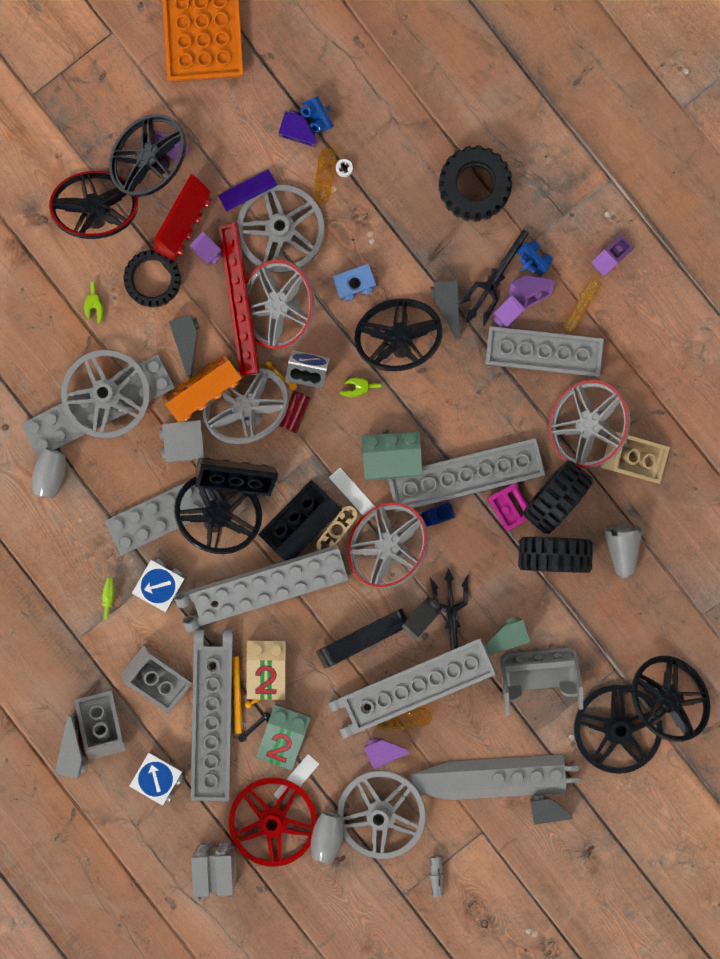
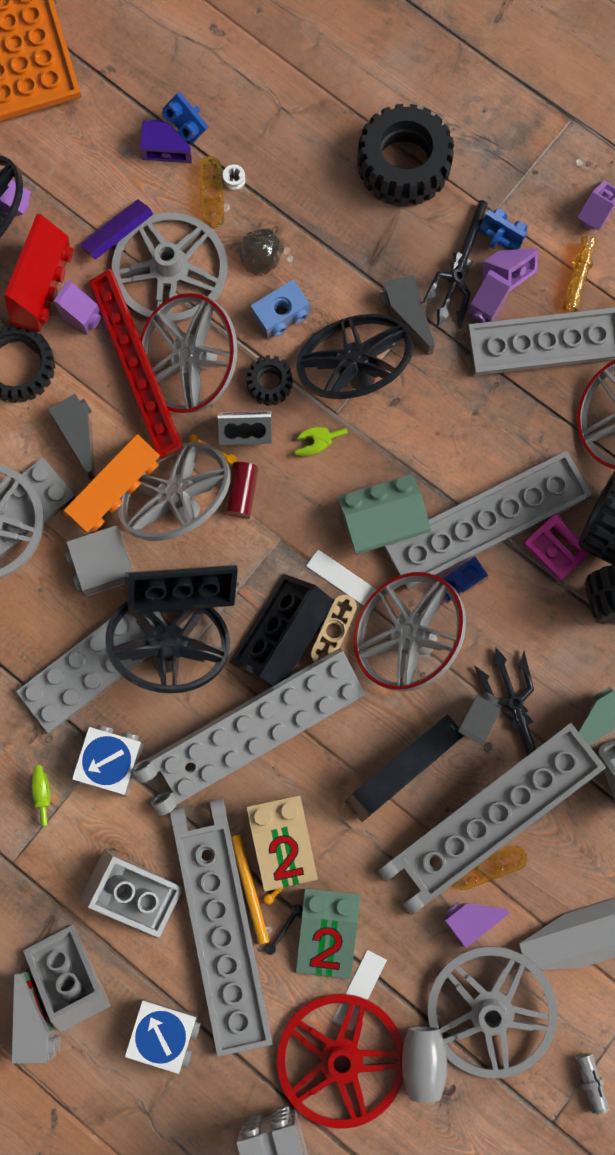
camera: 15 degrees left, 10 degrees down
(322, 334) = (269, 365): none -> black tyre
(350, 233) = (260, 251): none -> clear smoke hair

